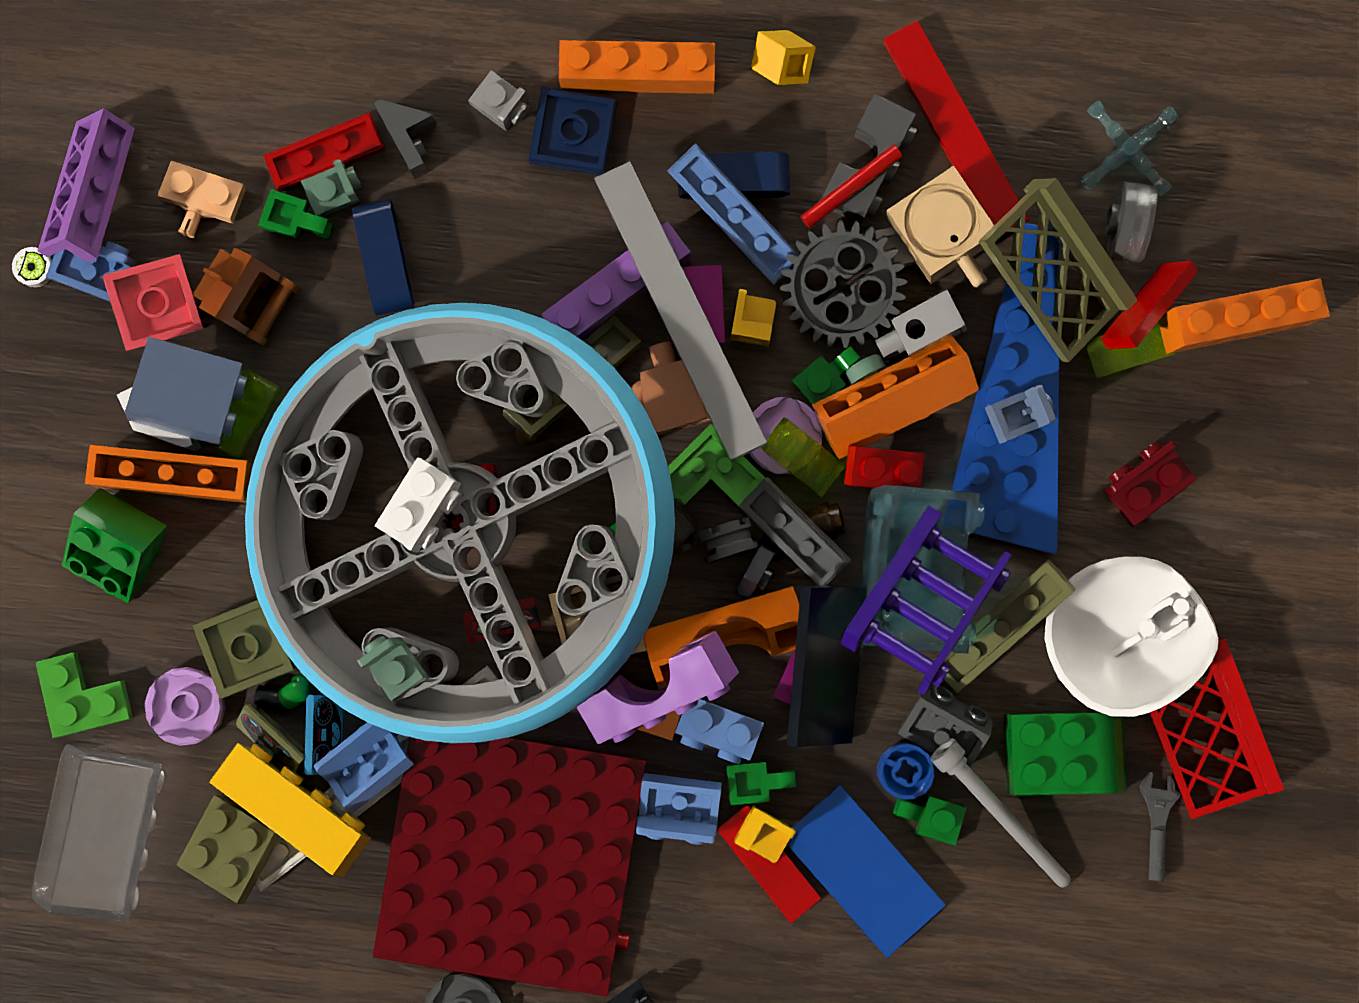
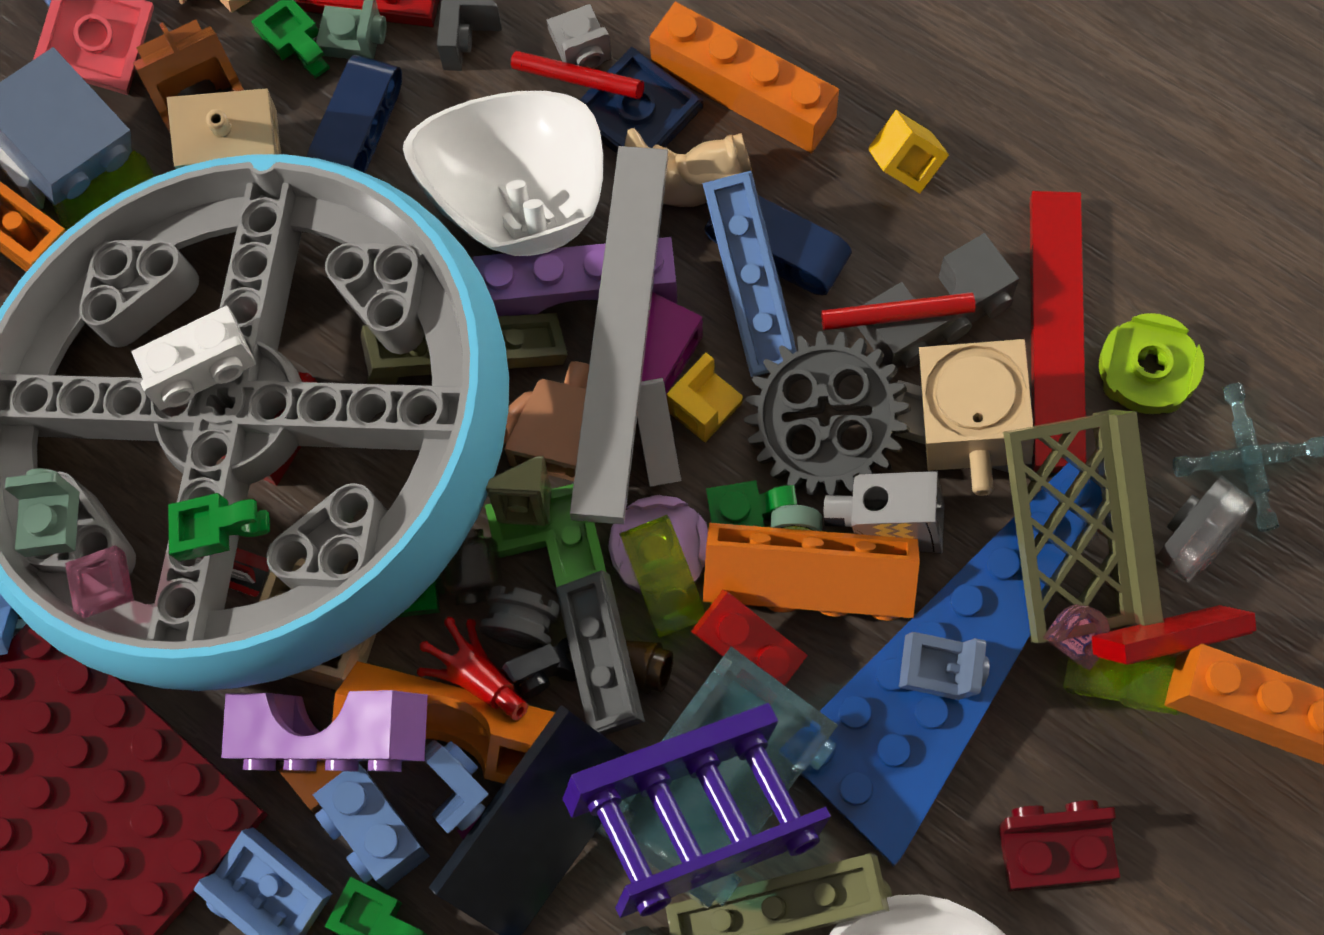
camera: 30 degrees right, 15 degrees down
(311, 327) = (222, 126): none -> tan piece
(460, 687) = (99, 581): none -> clear pink tile
(510, 613) = (205, 523): none -> green plate
(518, 131) = (577, 74): none -> red bar
(524, 232) = (511, 168): none -> white piece
(652, 156) = (700, 165): none -> tan animal
(688, 462) = (522, 494): none -> olive slope
(724, 593) = (475, 671): none -> red piece
(746, 371) = (657, 434): none -> light grey piece
(769, 680) = (456, 770): none -> medium blue bracket
(1042, 101) = (1143, 391): none -> lime plate
(1087, 341) = (1073, 632): none -> clear pink tile

